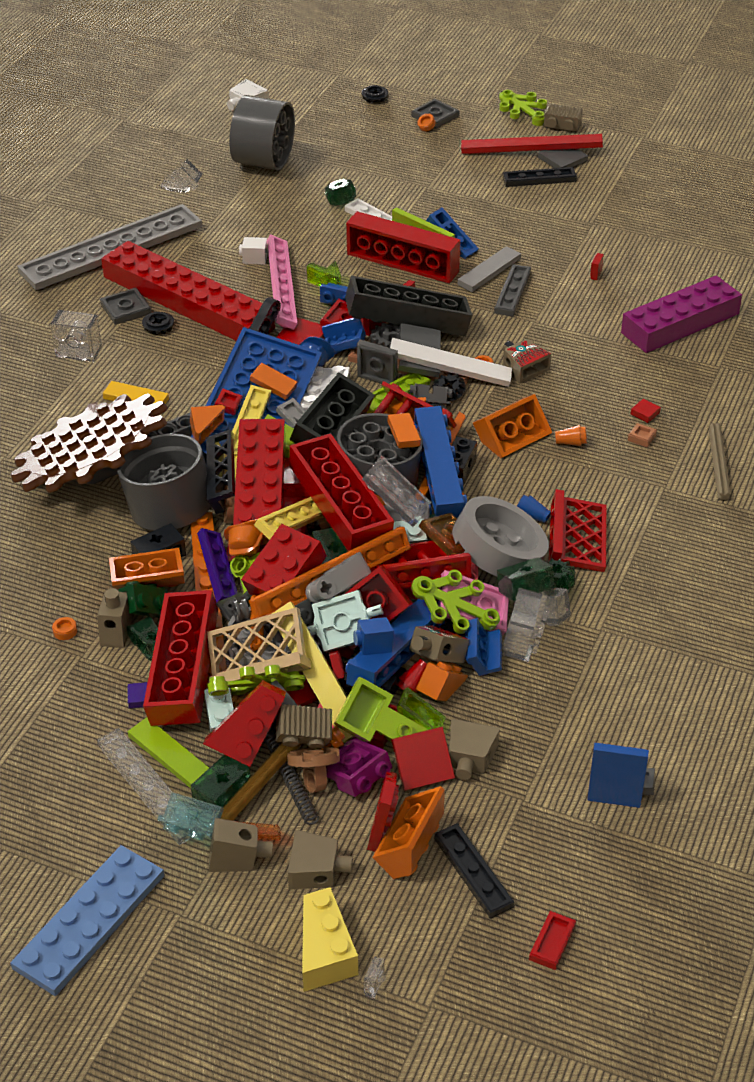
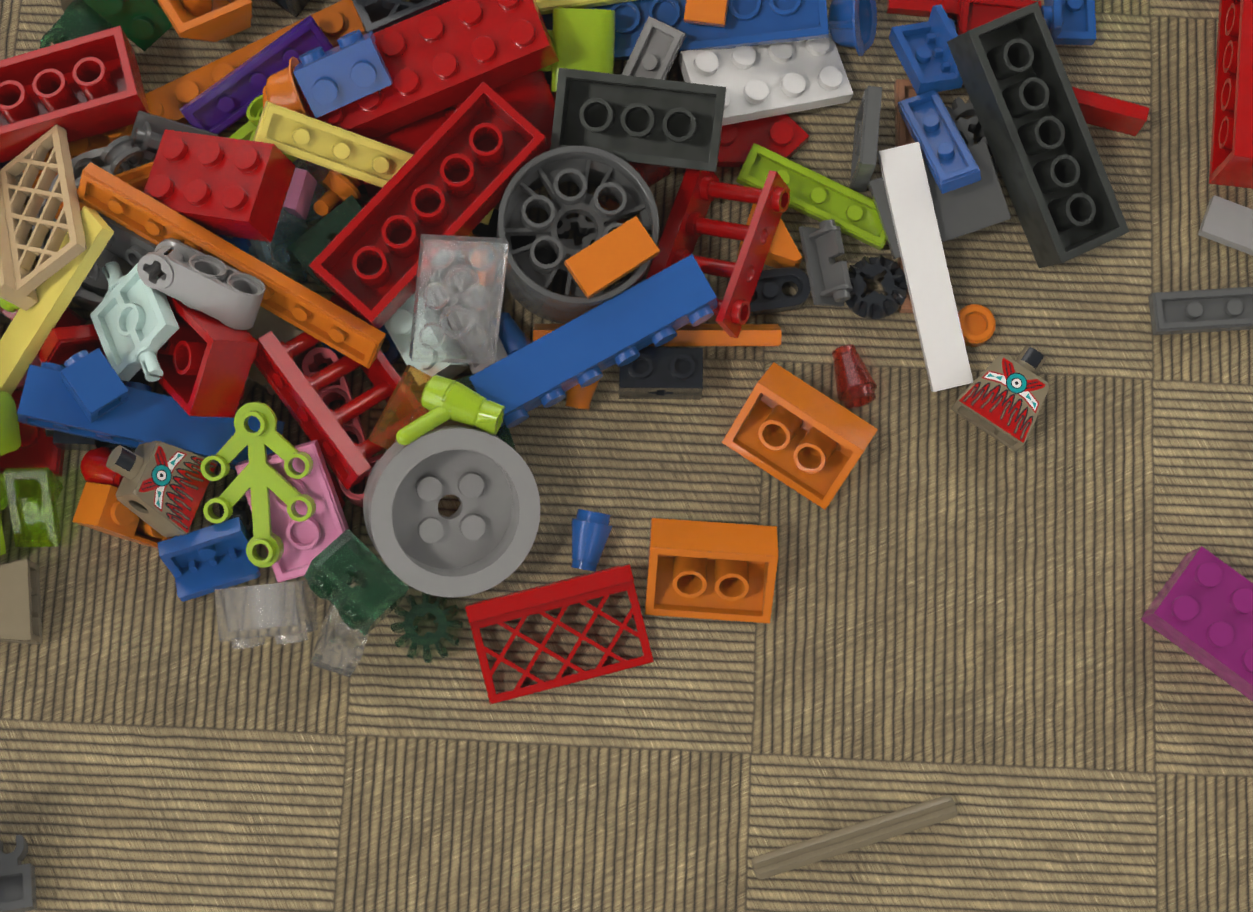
camera: 65 degrees right, 35 degrees up
(253, 495) = (341, 73): none -> blue bracket
(406, 331) = (939, 141): none -> blue tile
(452, 505) = (453, 402): none -> lime piece
(490, 403) = (852, 378): none -> clear red cone
(568, 468) = (711, 570): none -> orange slope
(572, 436) = (816, 549): orange cone -> none
(642, 435) = (879, 675): nougat tile -> none
(645, 410) = (952, 663): red tile -> none

